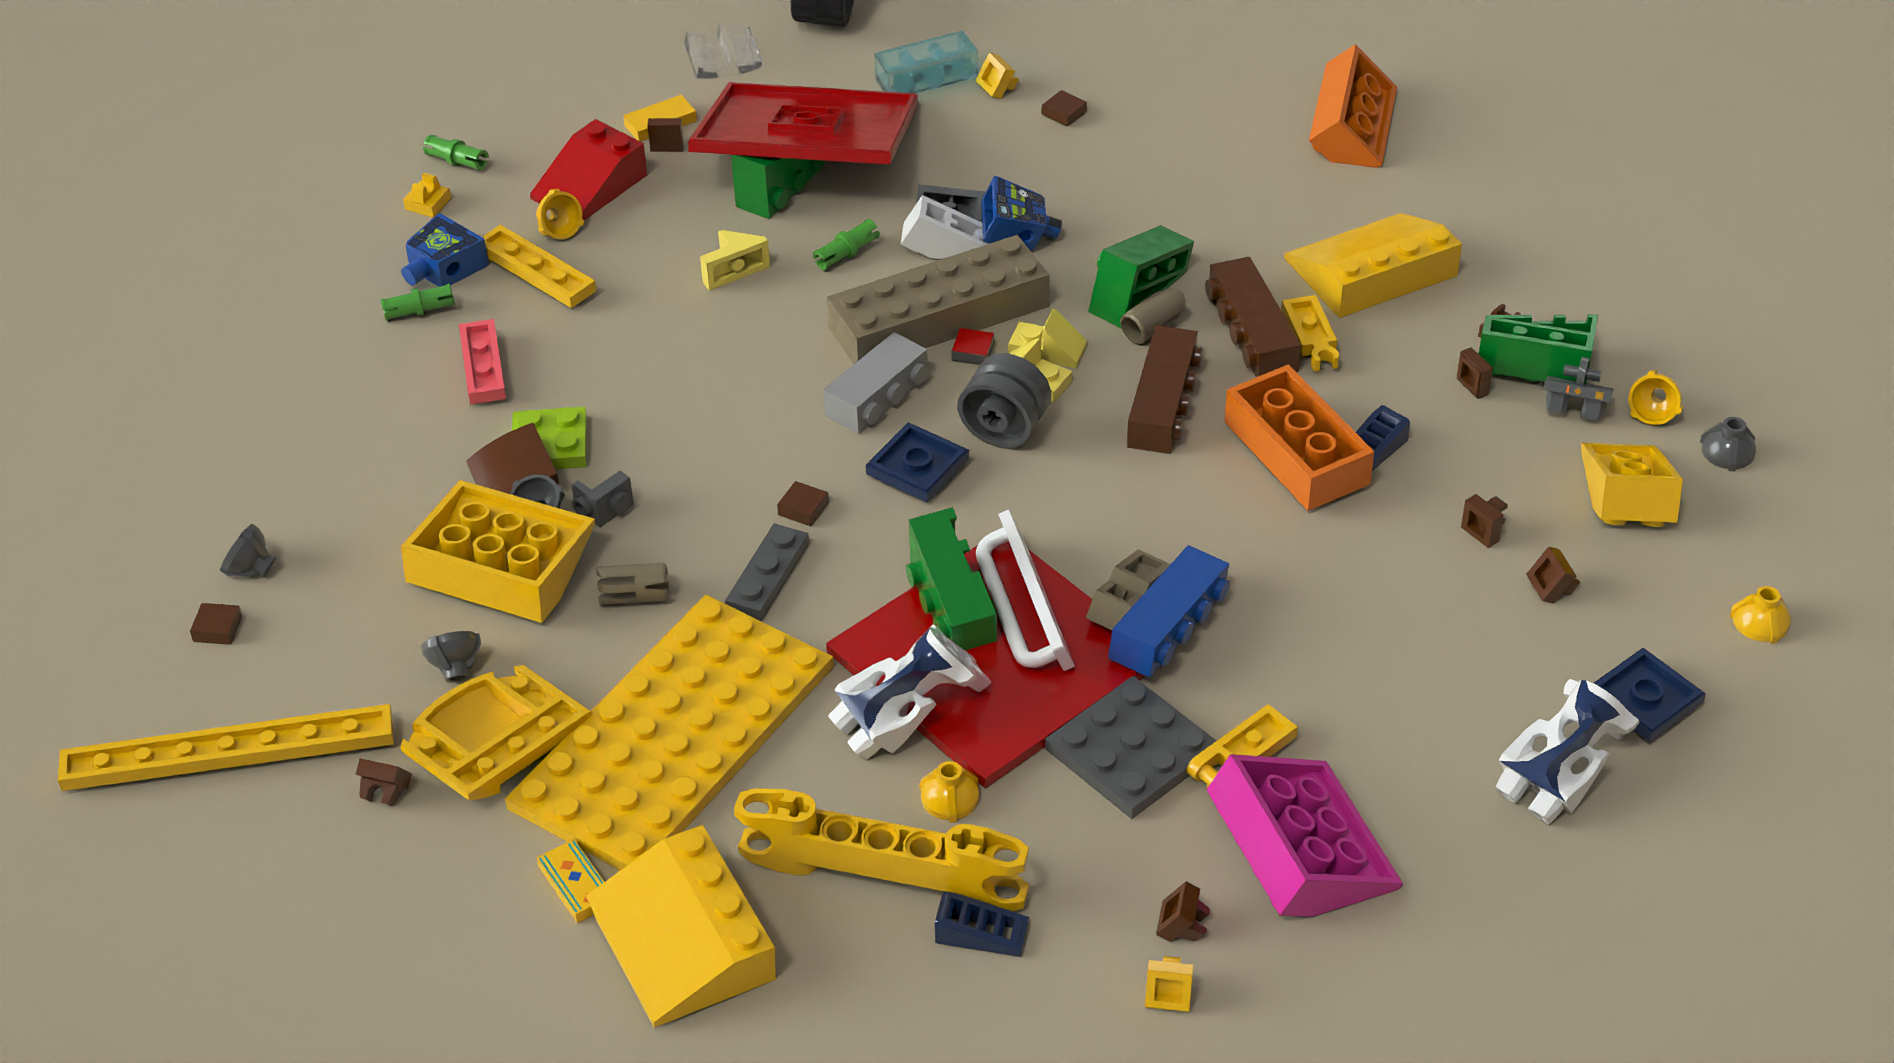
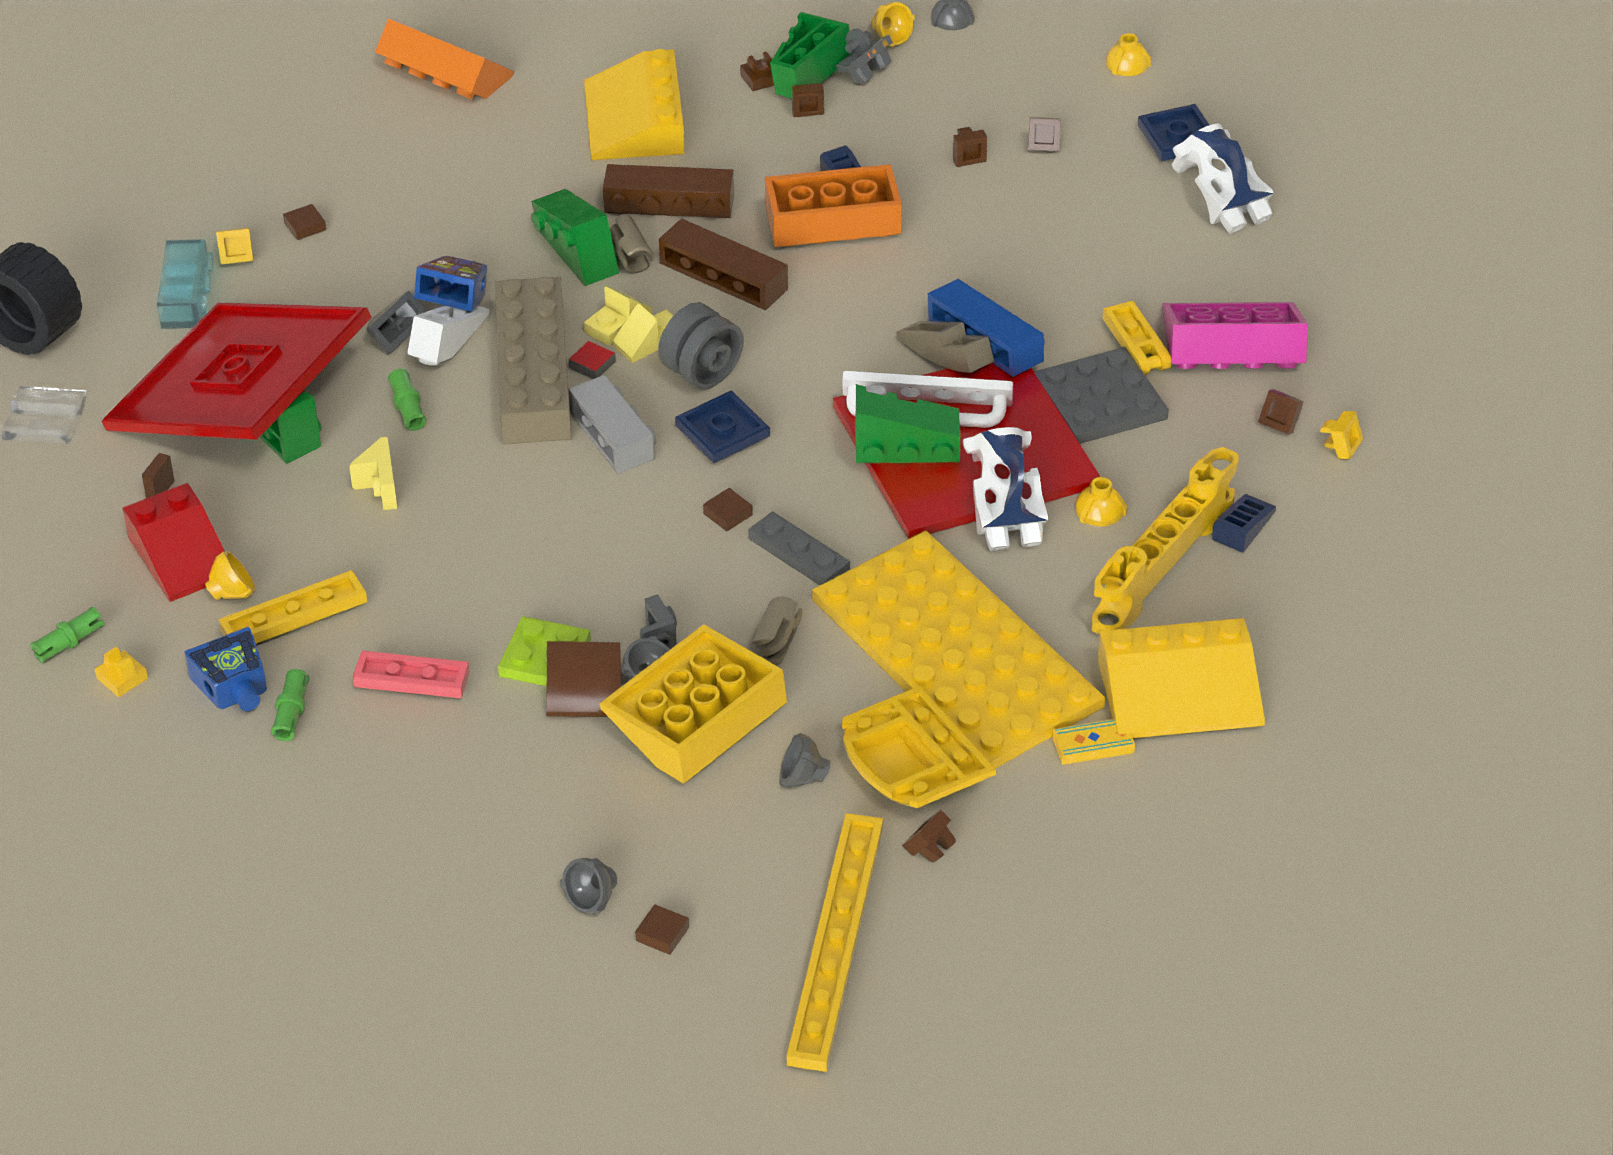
camera: 70 degrees left, 0 degrees up
(674, 107) = (116, 481): yellow tile -> none
(1311, 330) = (678, 158): yellow plate -> none
(1631, 483) = (970, 65): yellow slope -> none

